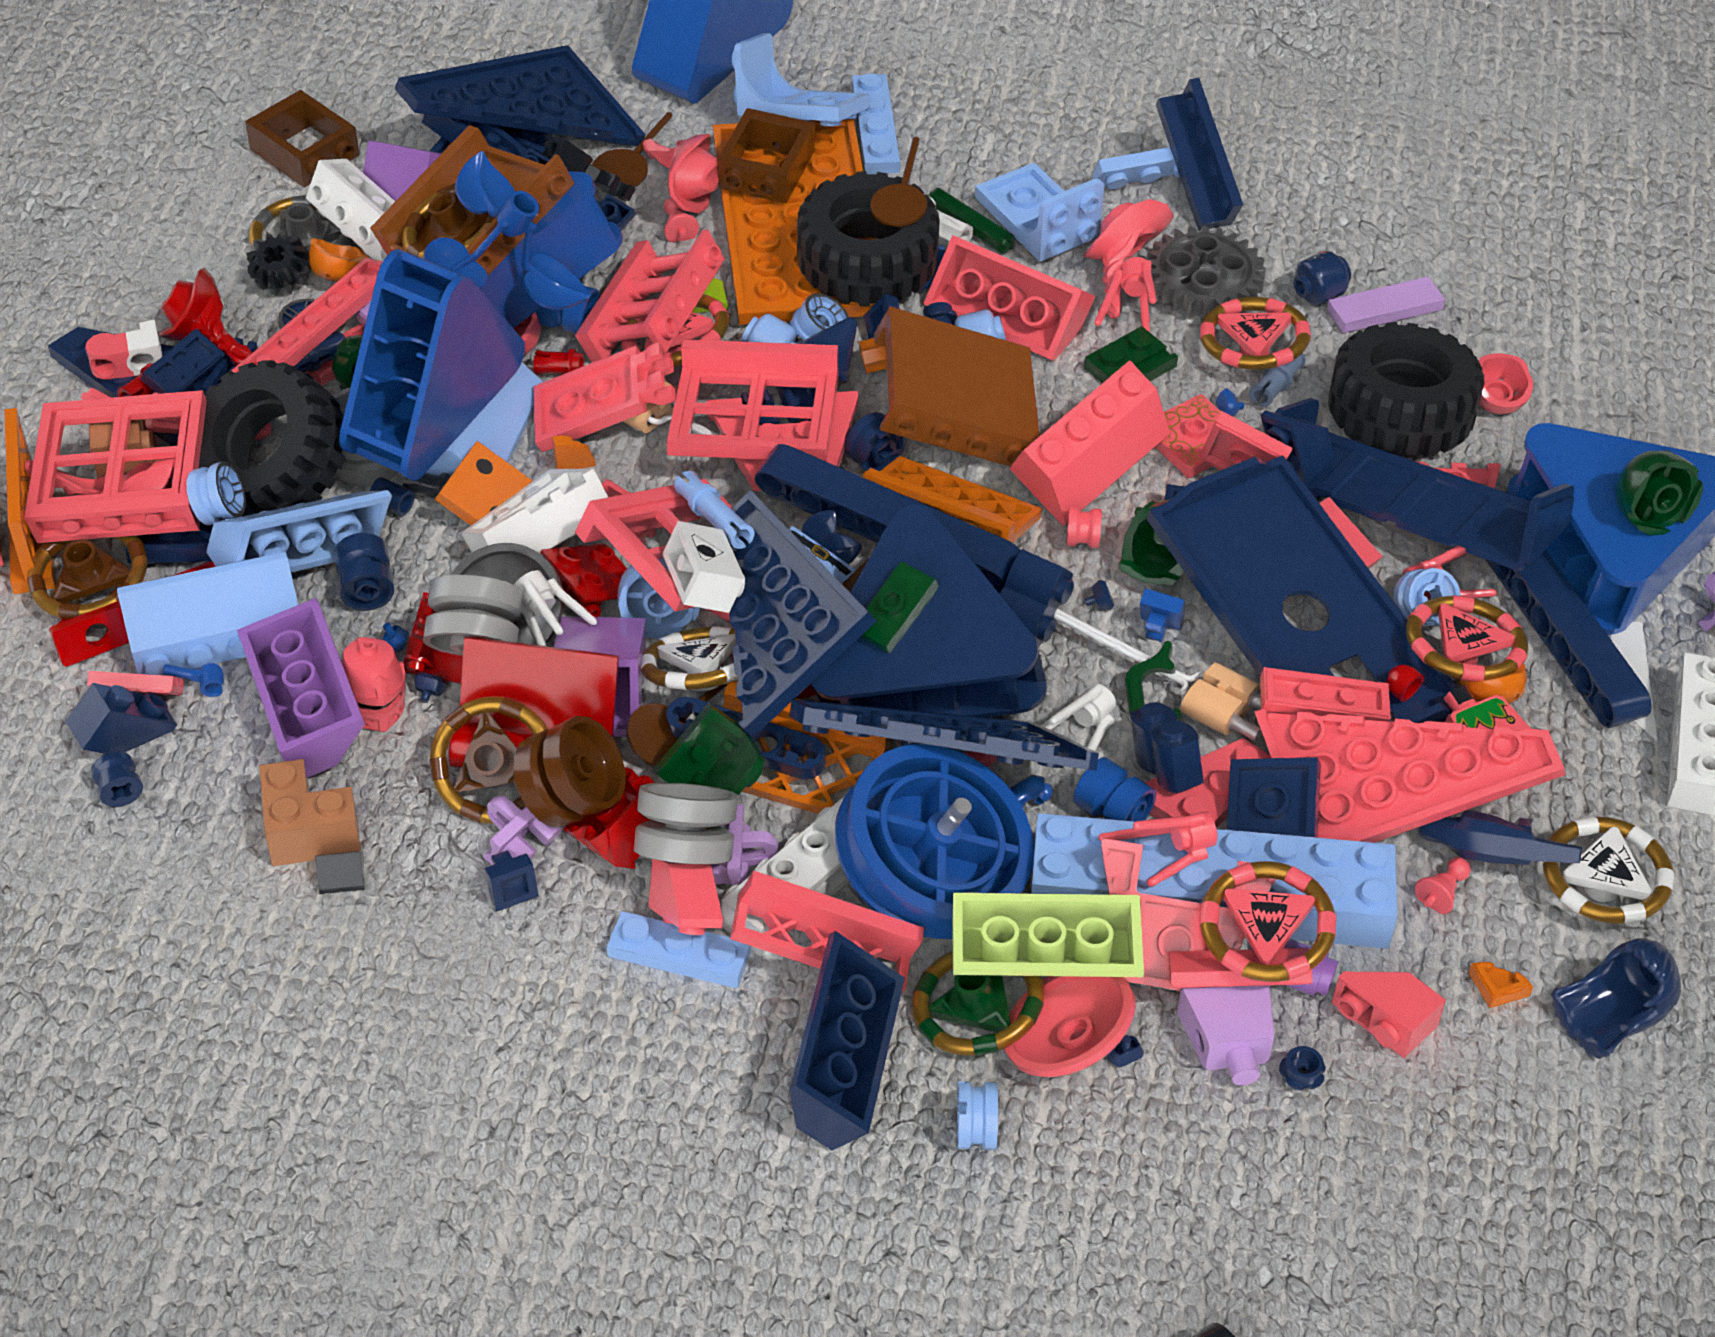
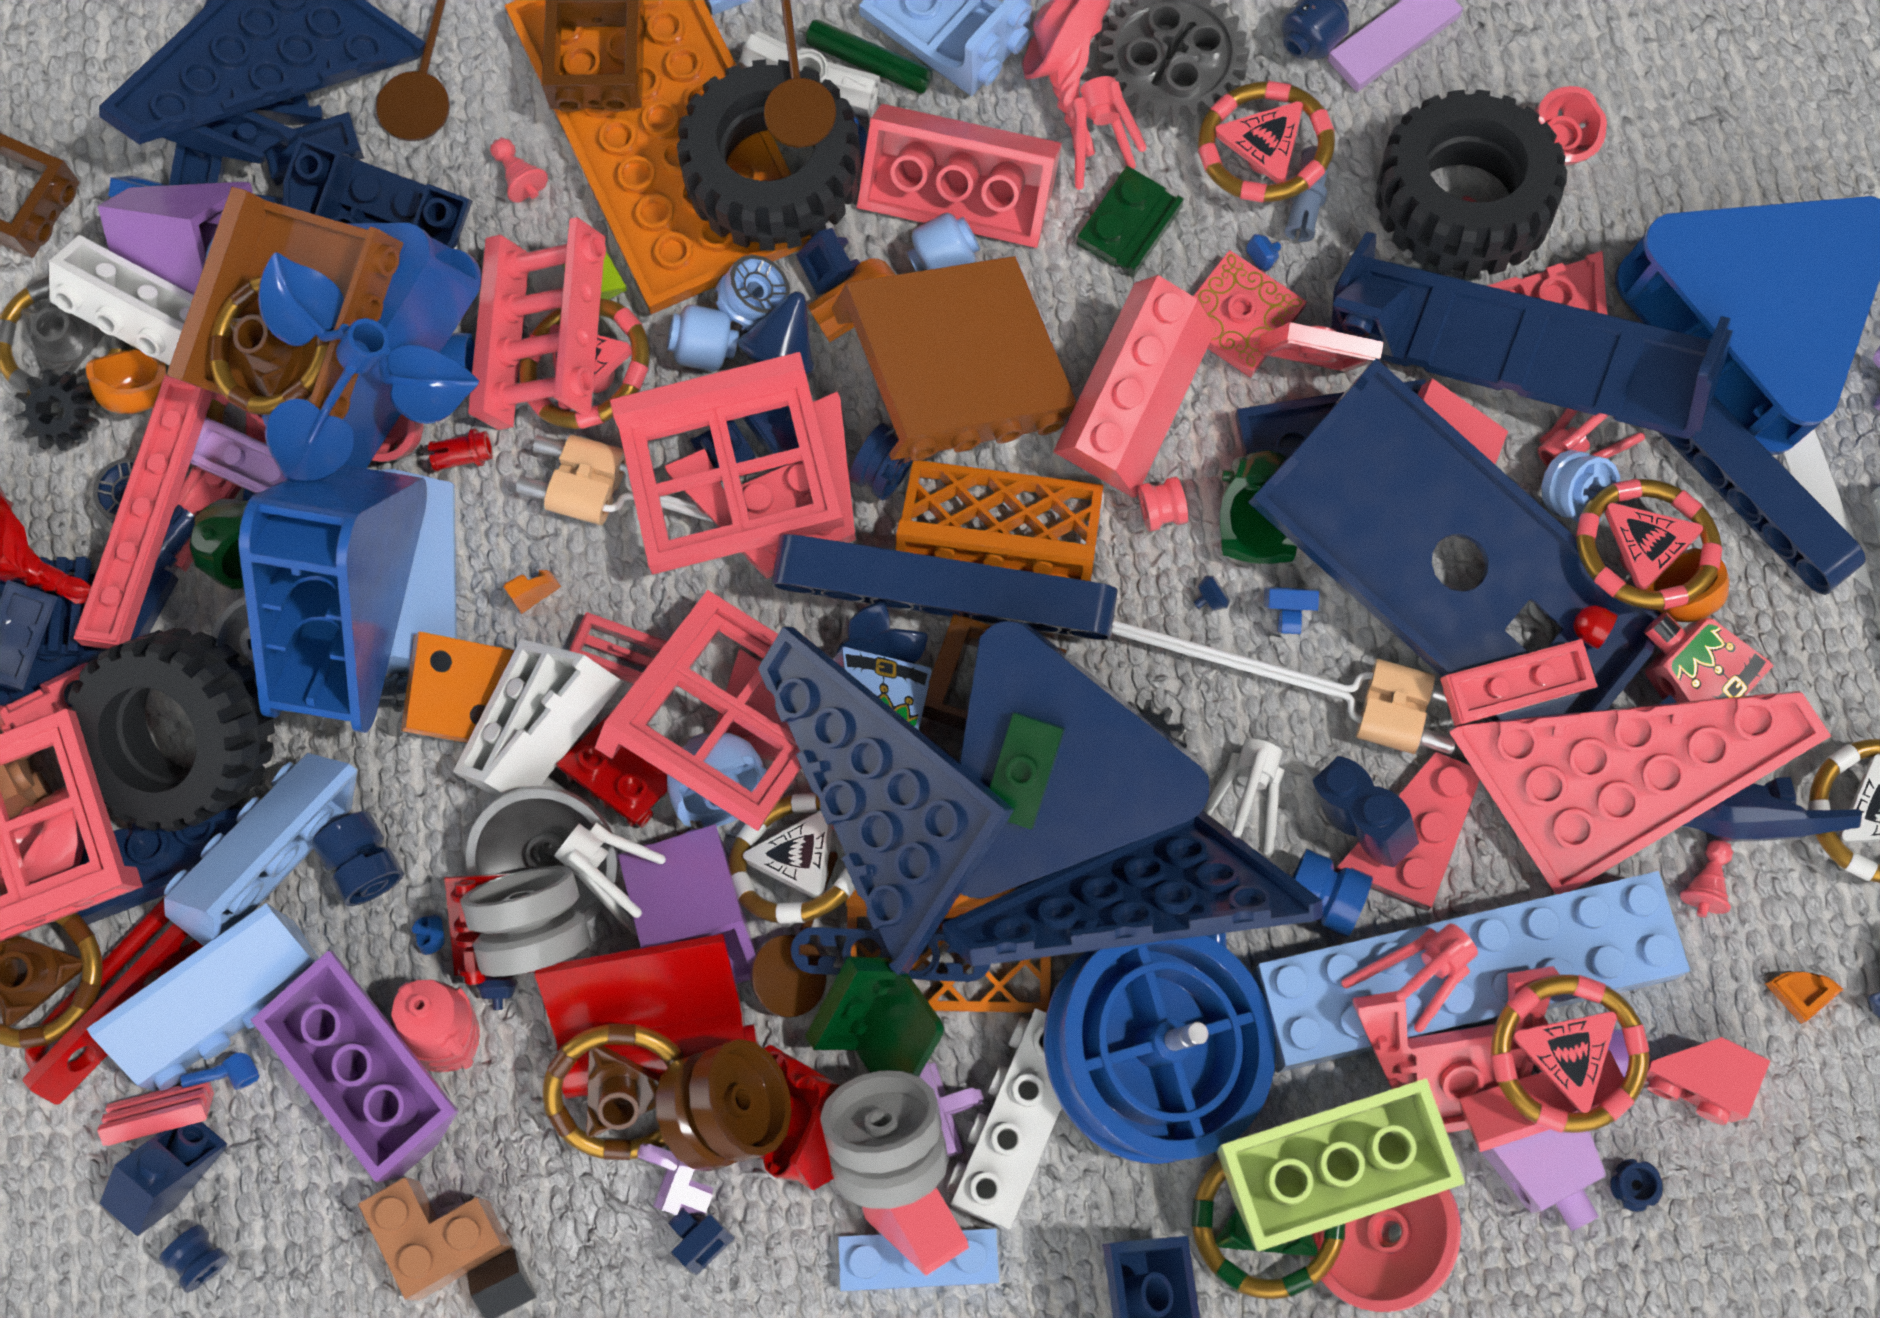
camera: 15 degrees left, 25 degrees up
(216, 493) = (145, 845): light blue wheel -> none
(401, 499) = (338, 731): dark blue hinge -> none
(579, 161) = (363, 133): black piece -> none
(601, 394) = (534, 503): coral tile -> none
(691, 170) = (513, 100): coral hat -> none
(703, 567) = (773, 768): white brick -> none
(707, 503) = (732, 653): light blue pin -> none
(791, 907) = (1076, 1192): coral fence -> none
(941, 311) = (886, 231): dark blue plate -> none
(1036, 591) = (1145, 645): dark blue brick -> none
(1137, 673) = (1298, 728): dark green helmet -> none
(1275, 796) = (1506, 849): dark blue plate -> none
(1658, 491) = (1821, 290): dark green cylinder -> none

